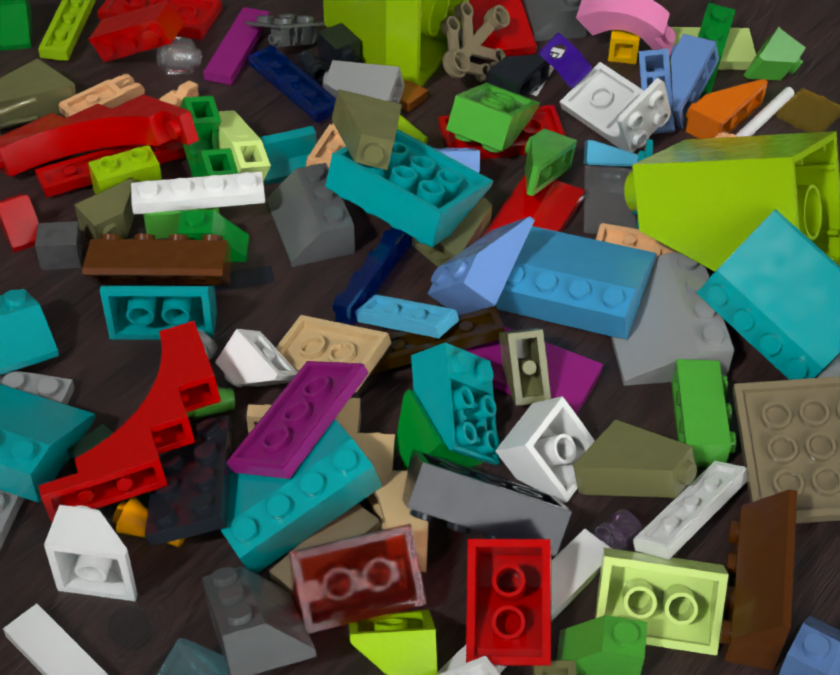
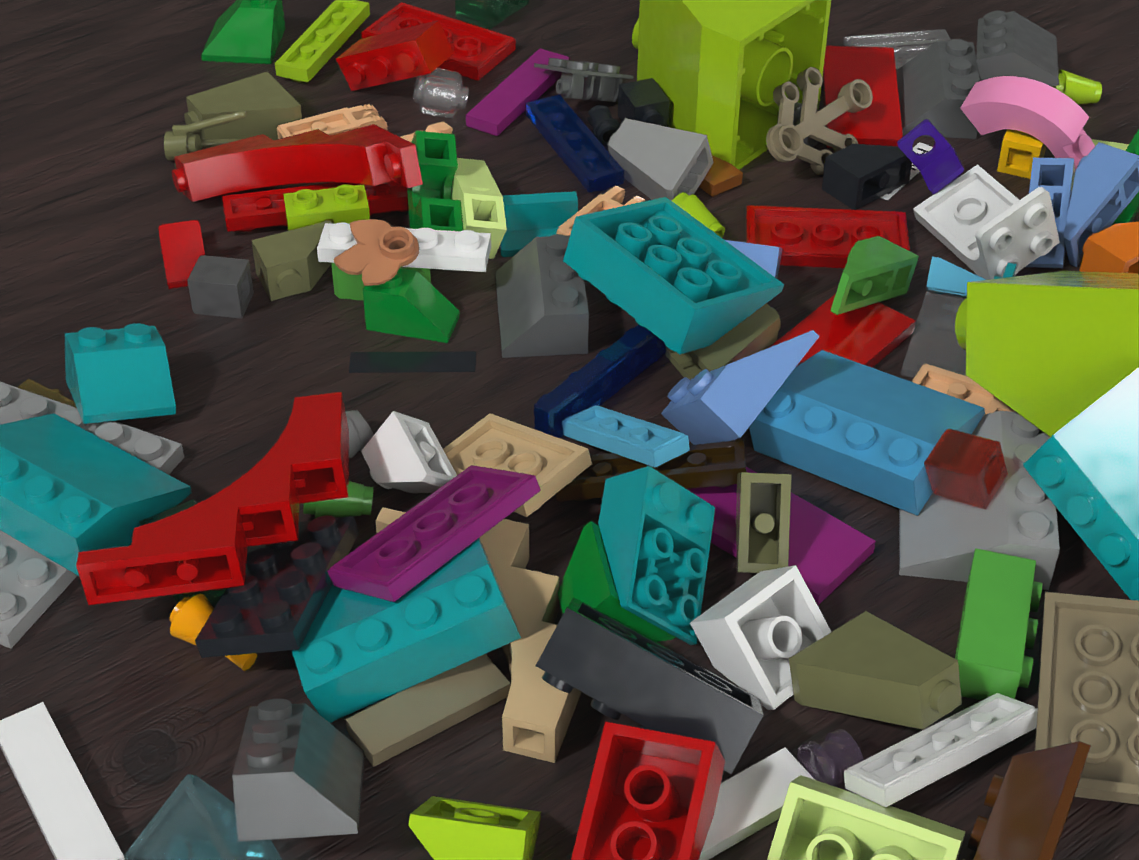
camera: 15 degrees right, 5 degrees down
(88, 555) = (116, 652): white slope -> none
(146, 310) = (285, 369): teal slope -> none
(158, 261) = (330, 320): reddish brown slope -> none
(179, 200) = (378, 251): none -> nougat plate
(356, 578) = (445, 745): clear red slope -> none
(366, 127) = (632, 192): olive slope -> none
(490, 116) = (811, 211): bright green slope -> none
(658, 301) = (966, 468): none -> clear red panel

